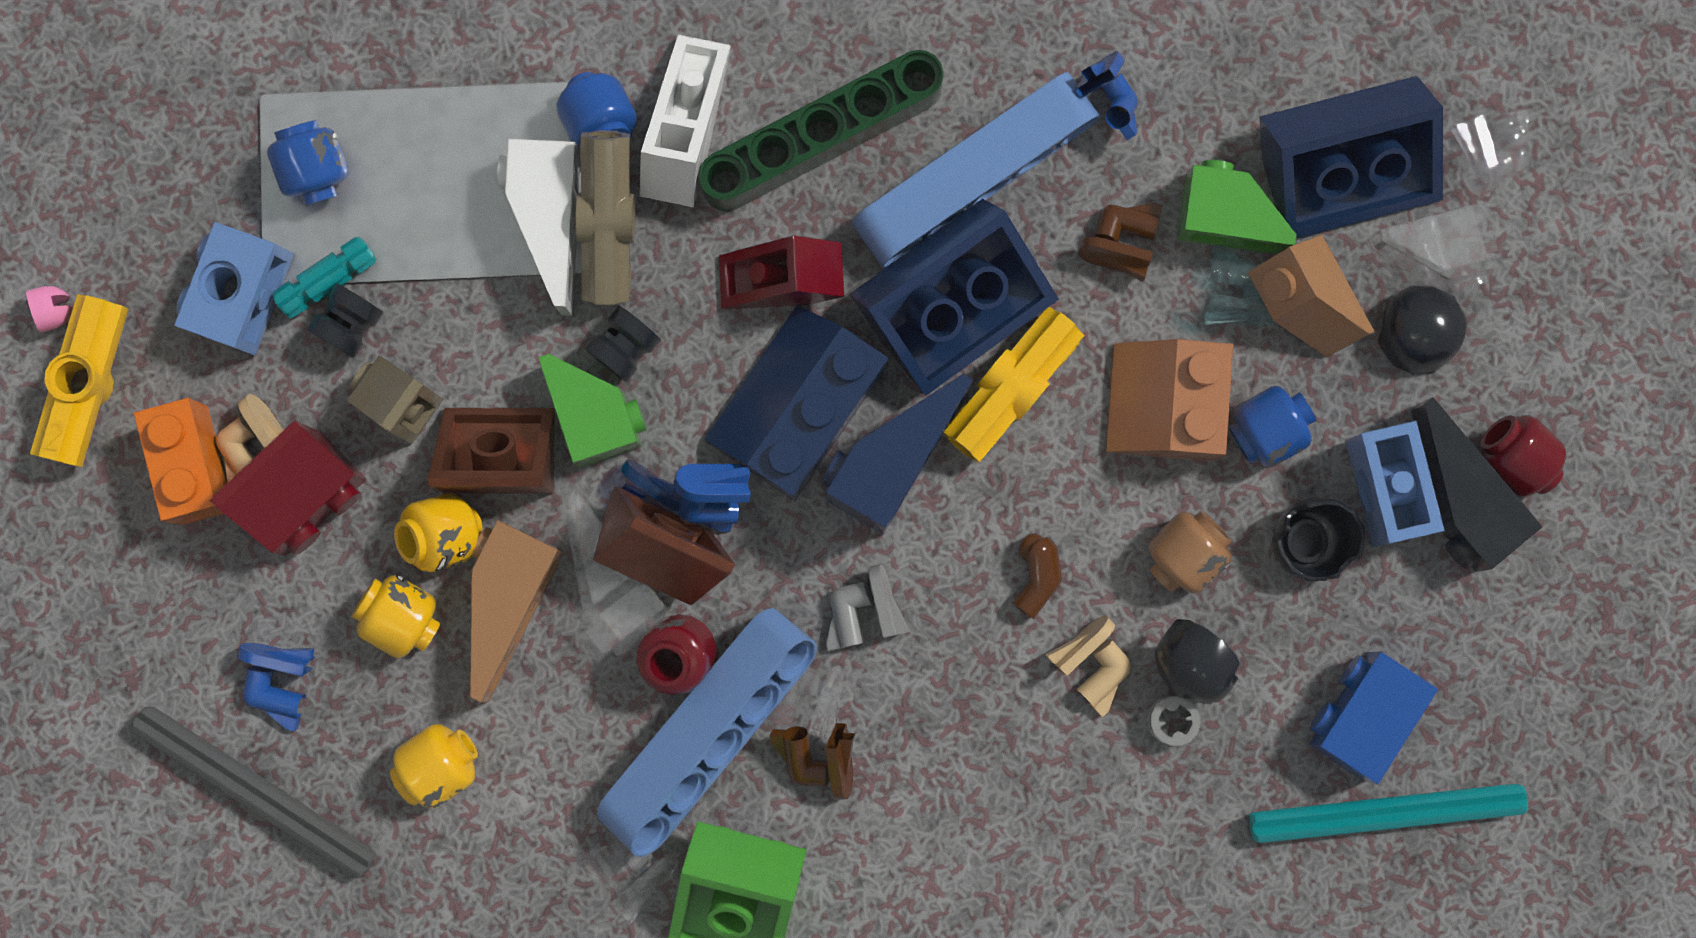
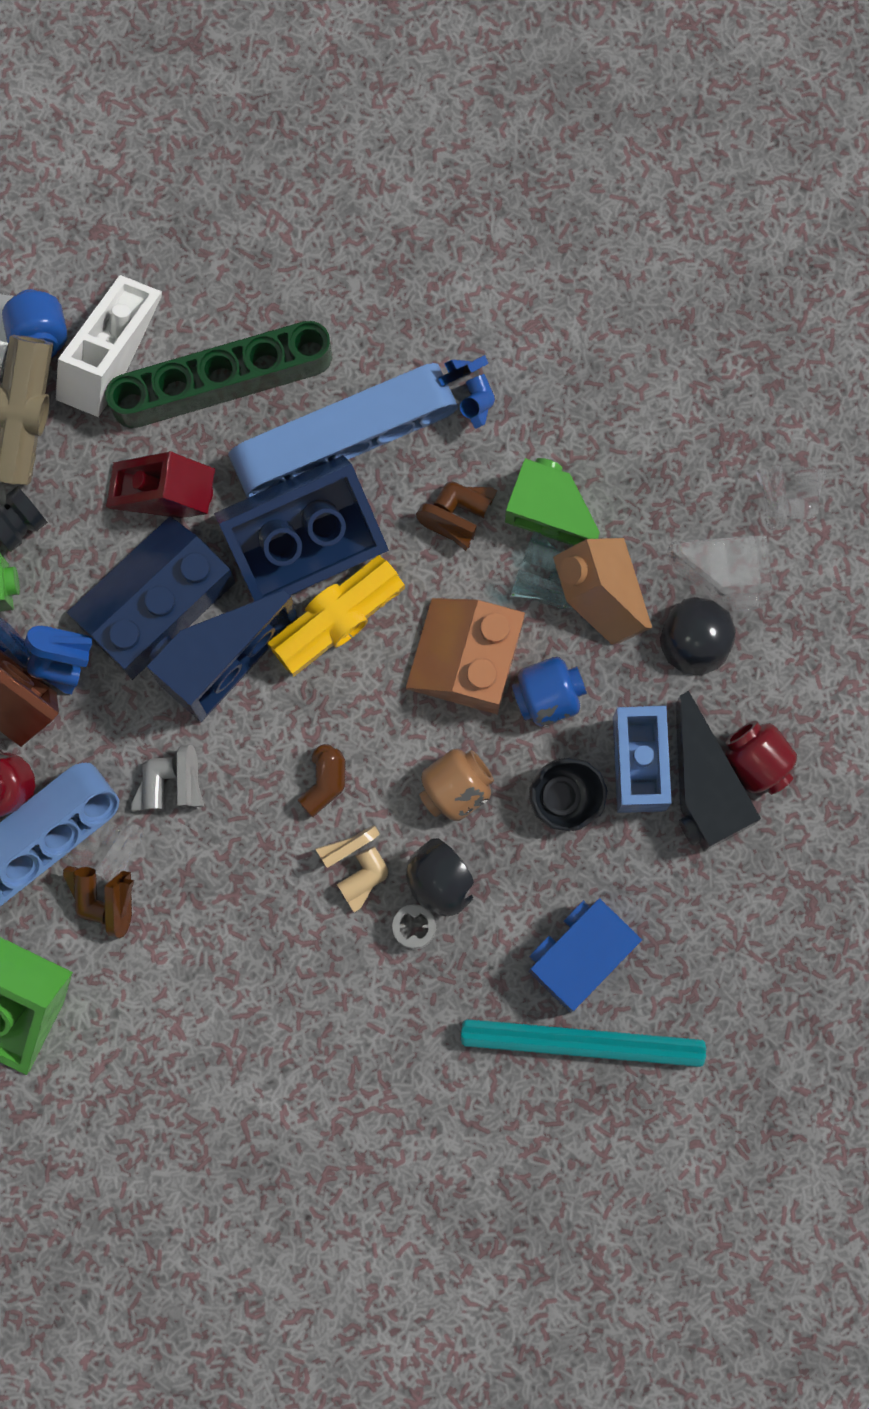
camera: 15 degrees right, 5 degrees down
(1354, 156) = (666, 480): dark blue slope -> none

